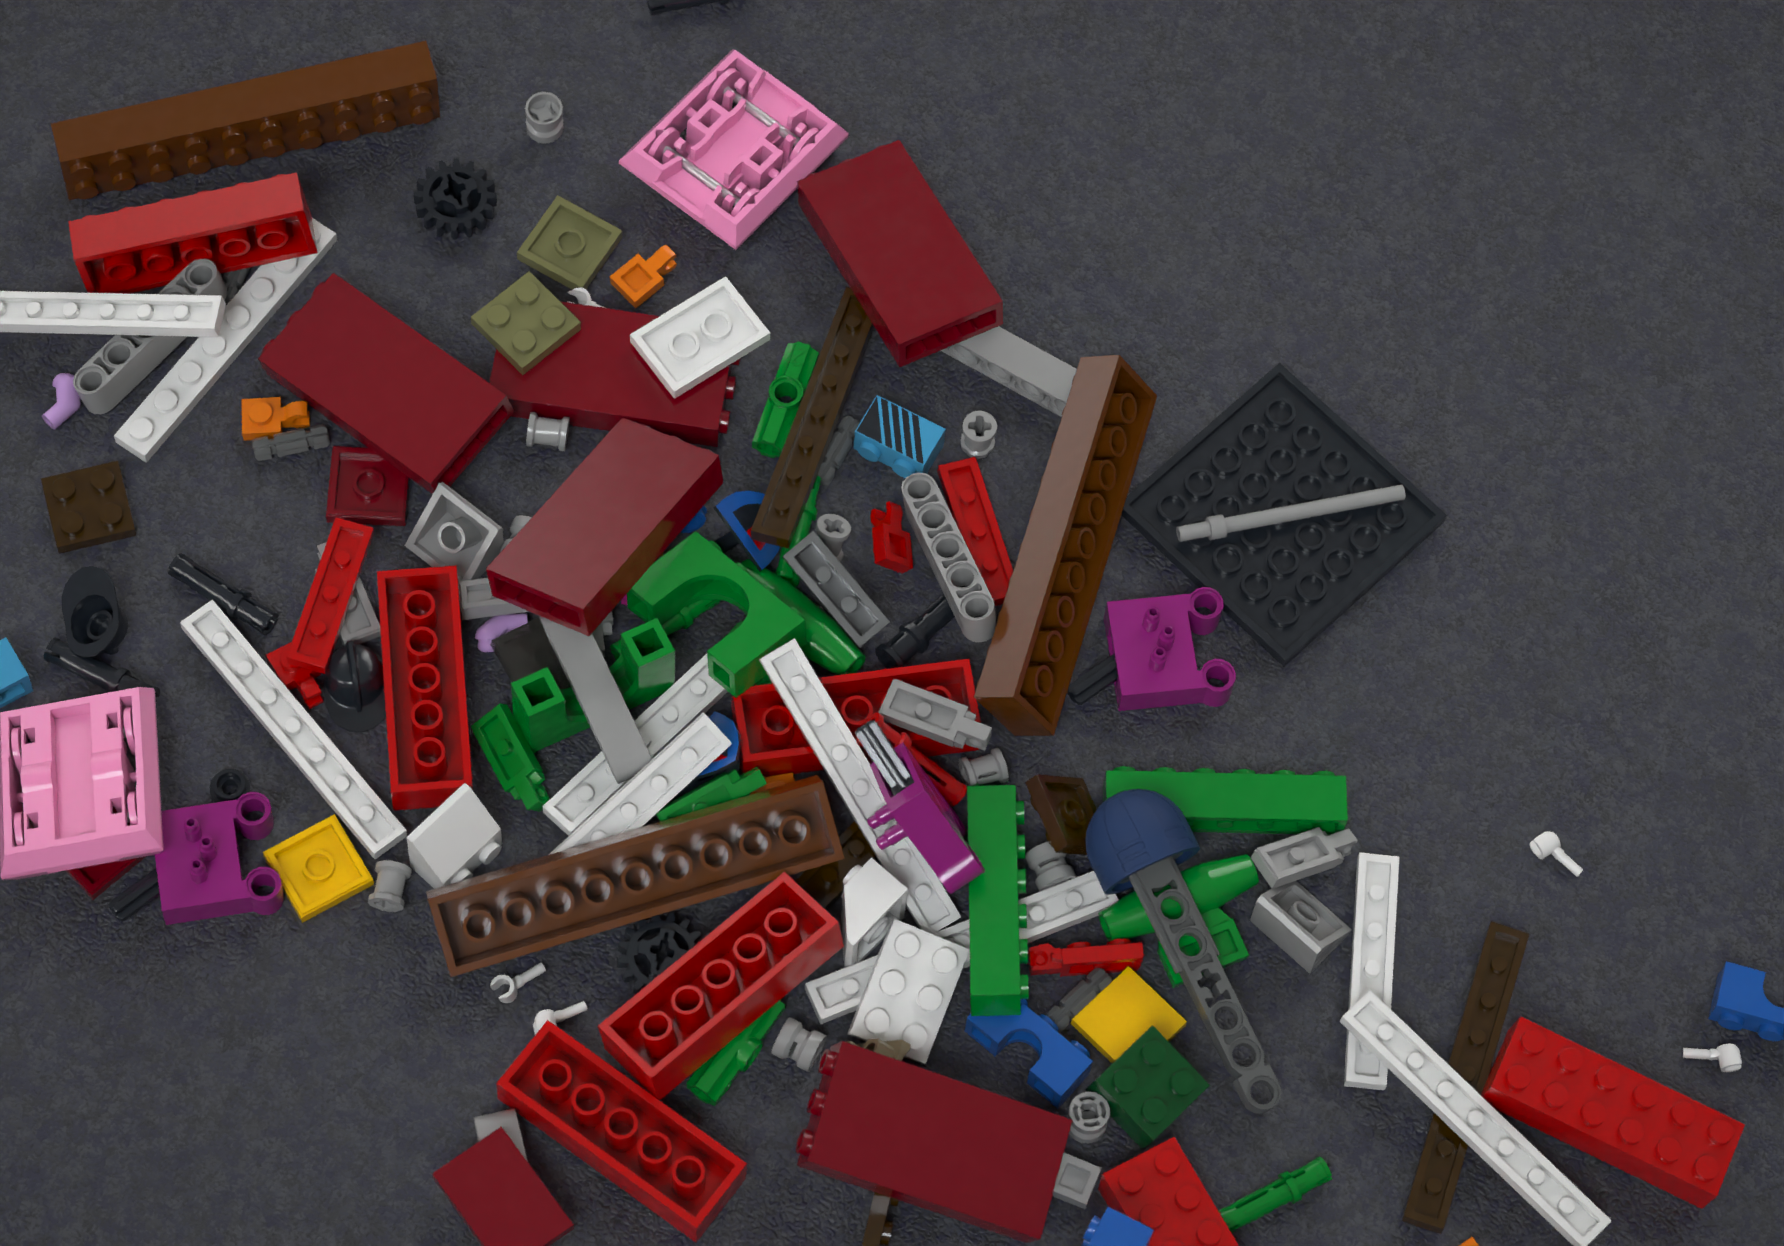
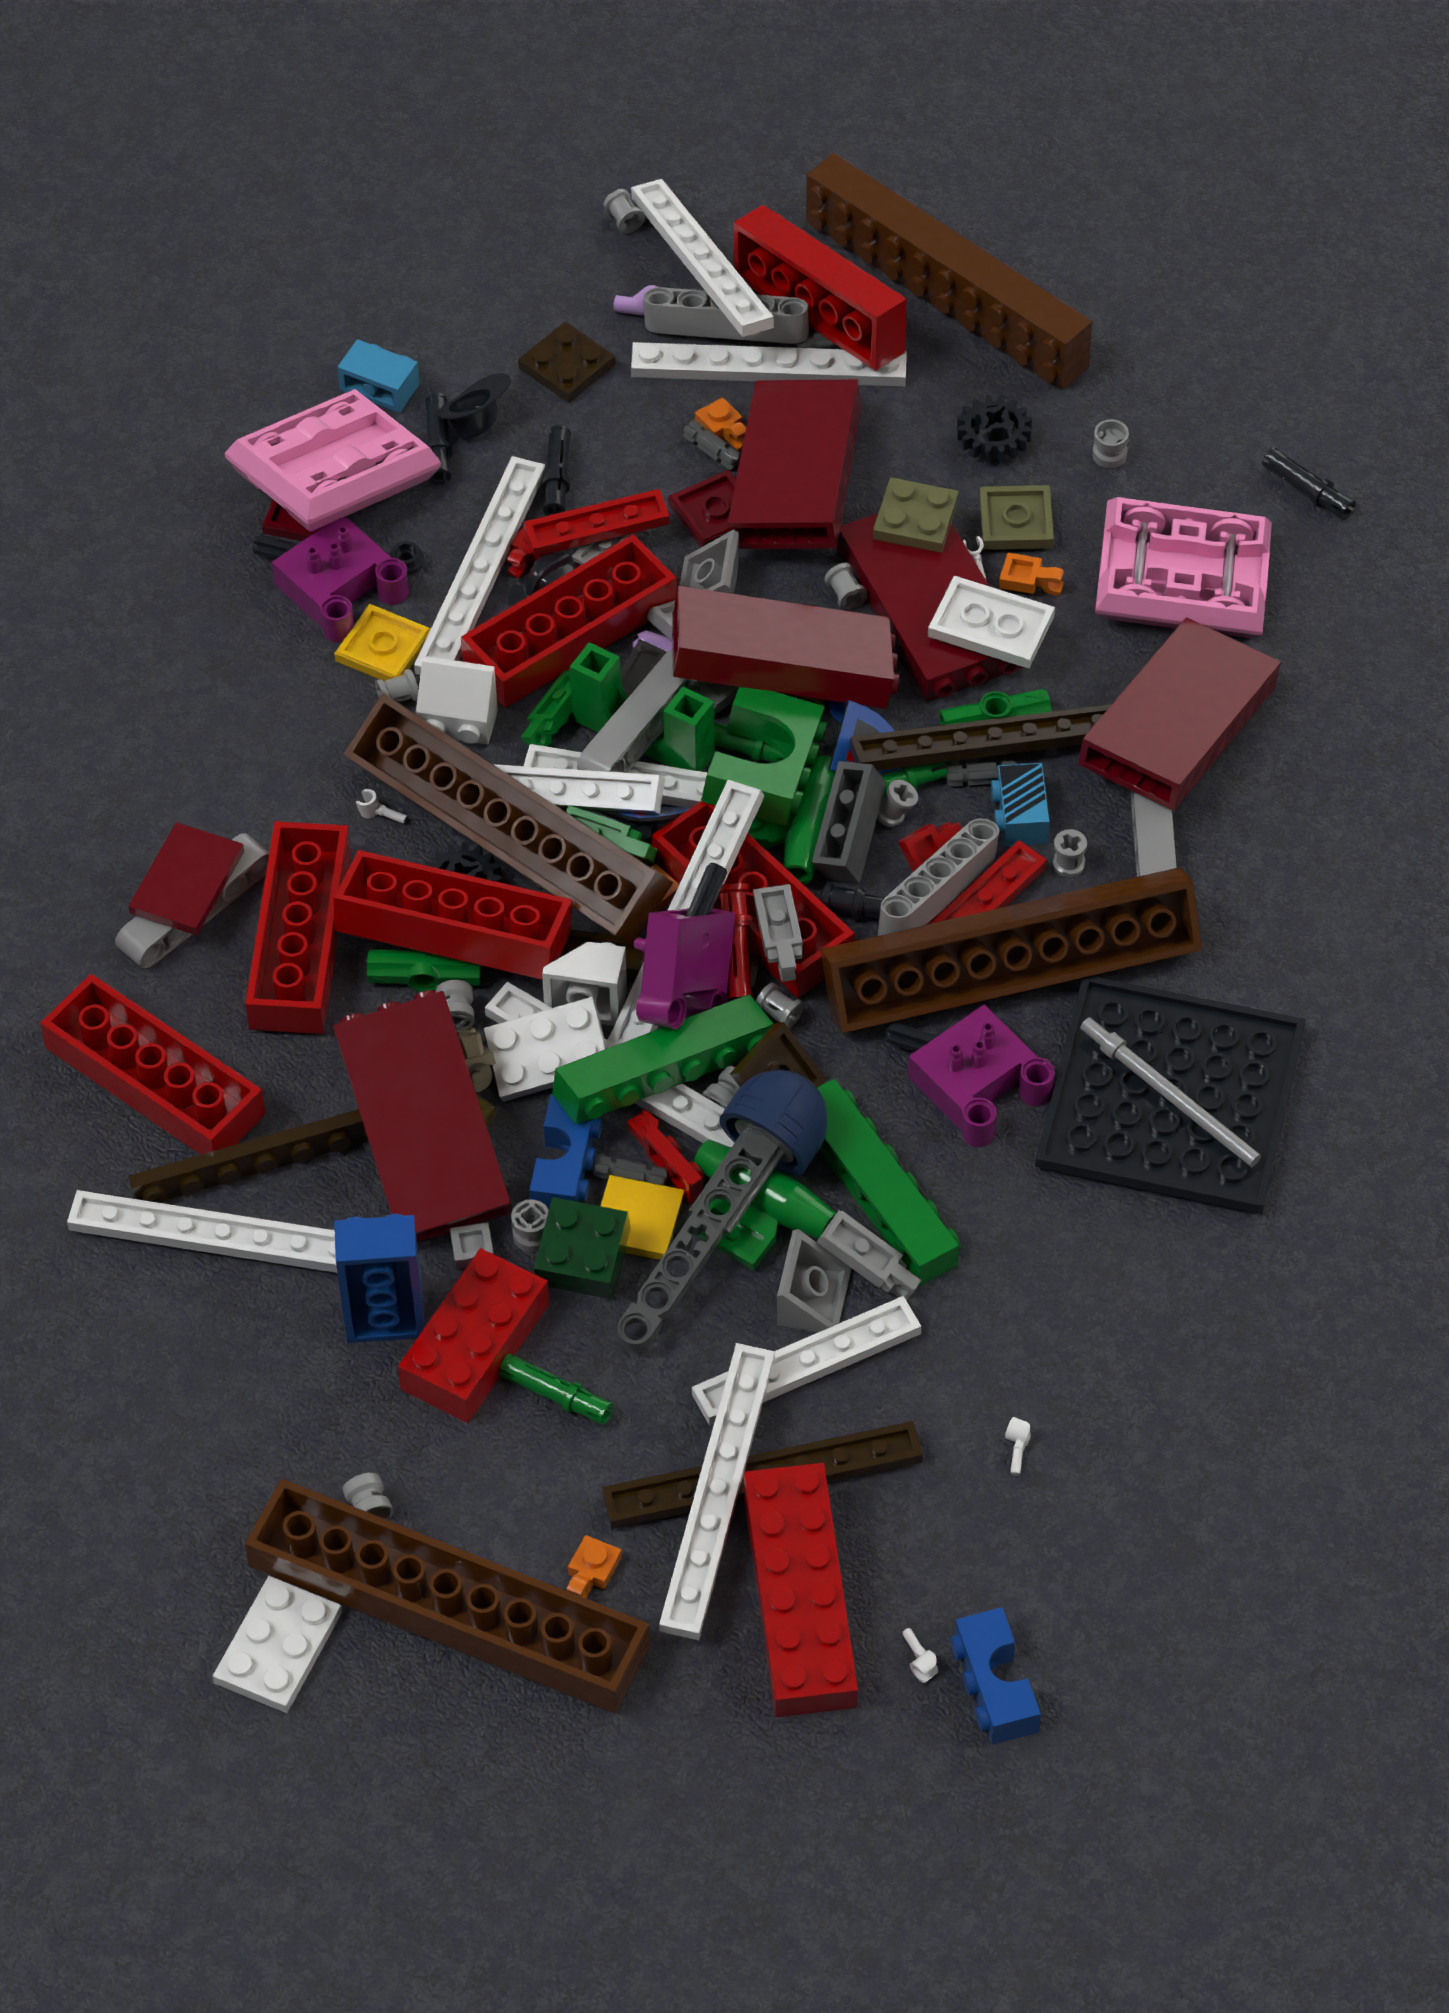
camera: 65 degrees right, 10 degrees down
(557, 1016) = (361, 841): white hand -> none

